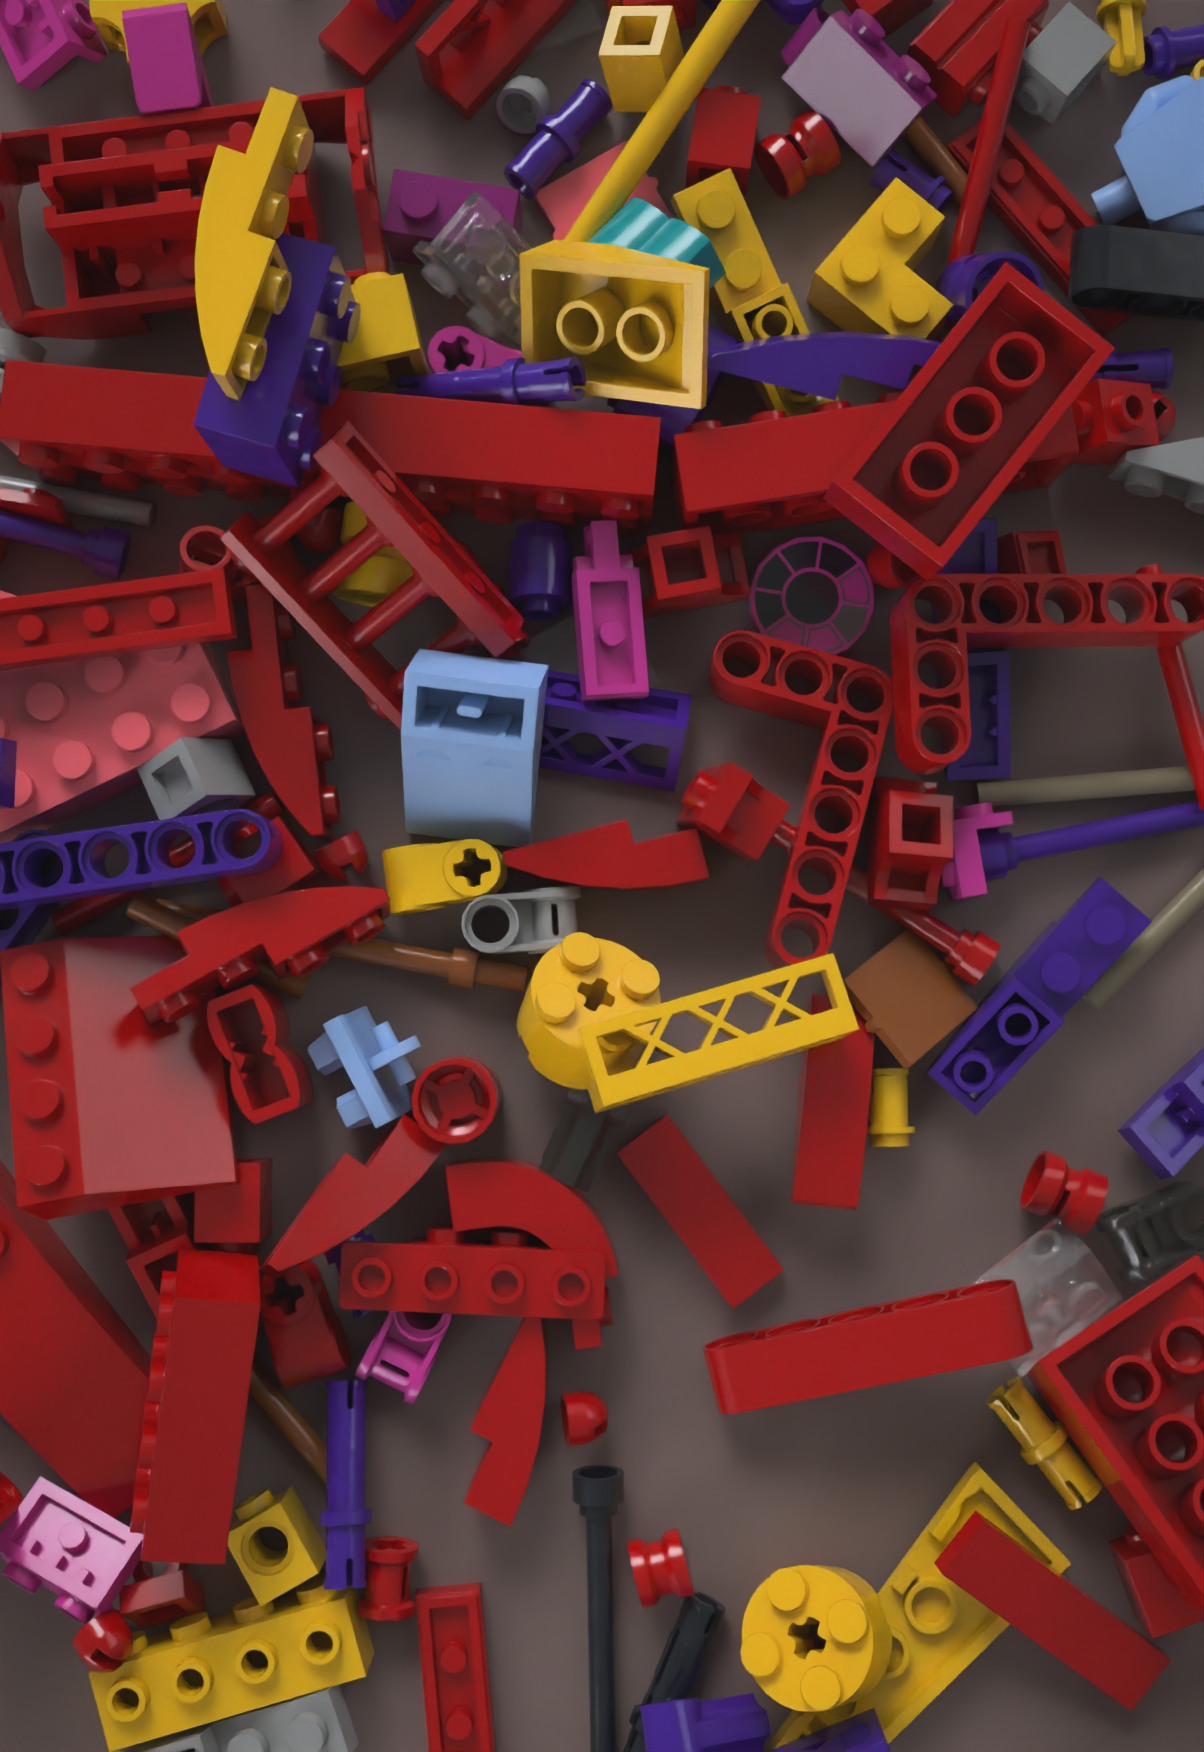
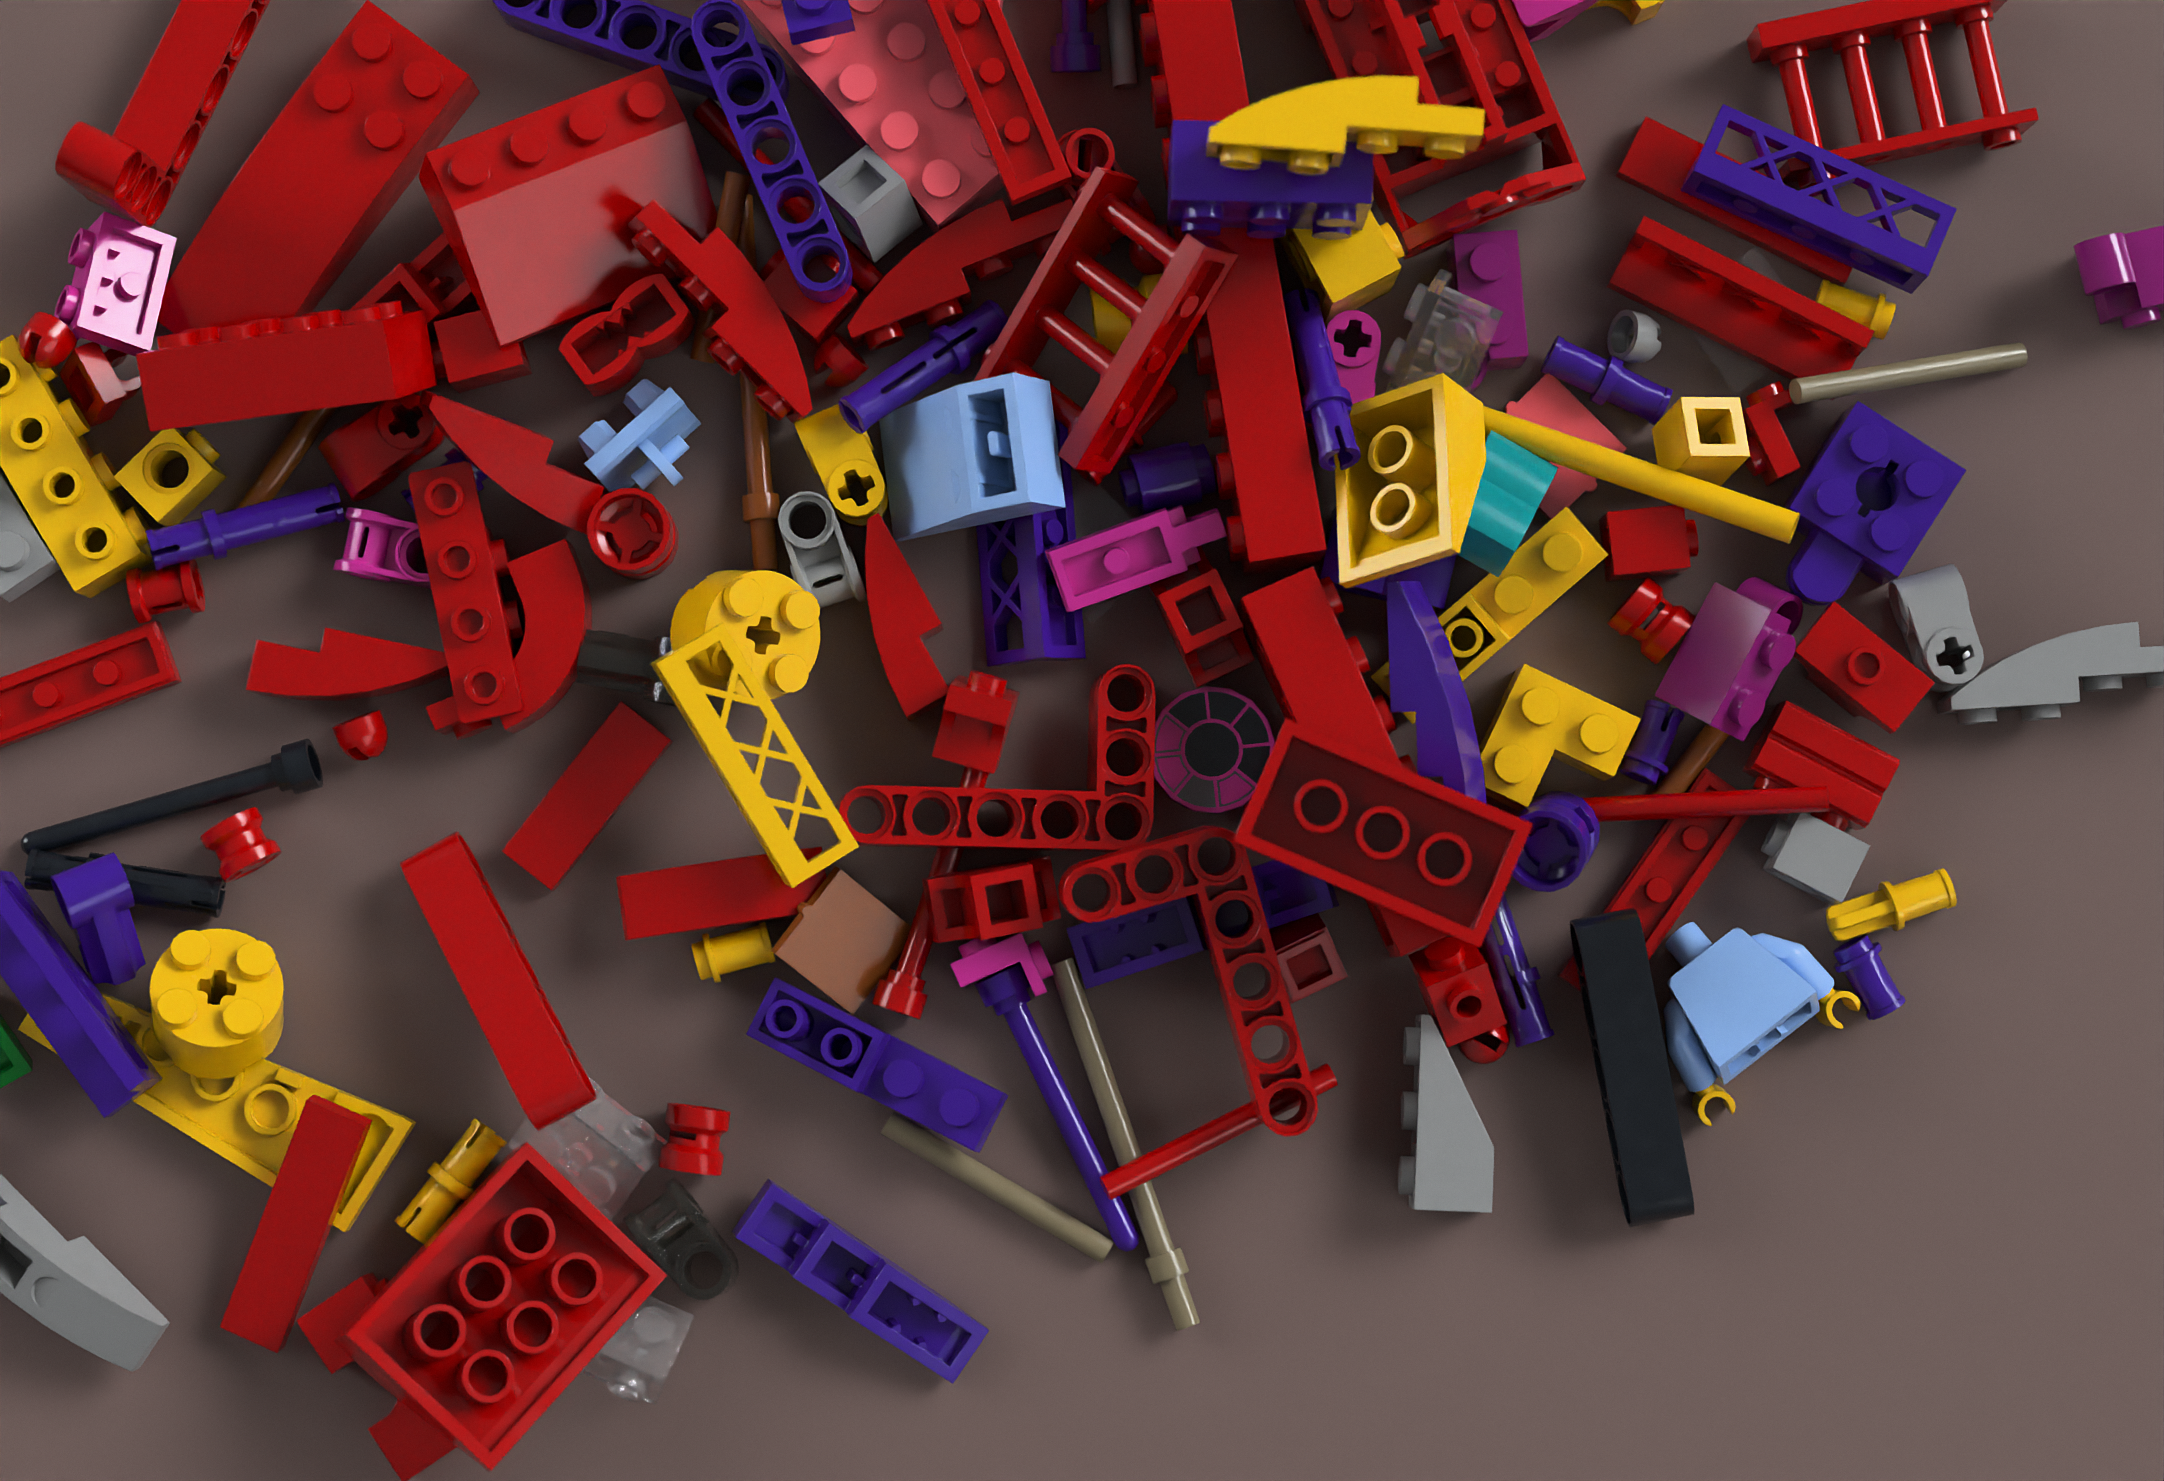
camera: 65 degrees right, 0 degrees up
(347, 712) = (870, 403): none -> dark purple pin

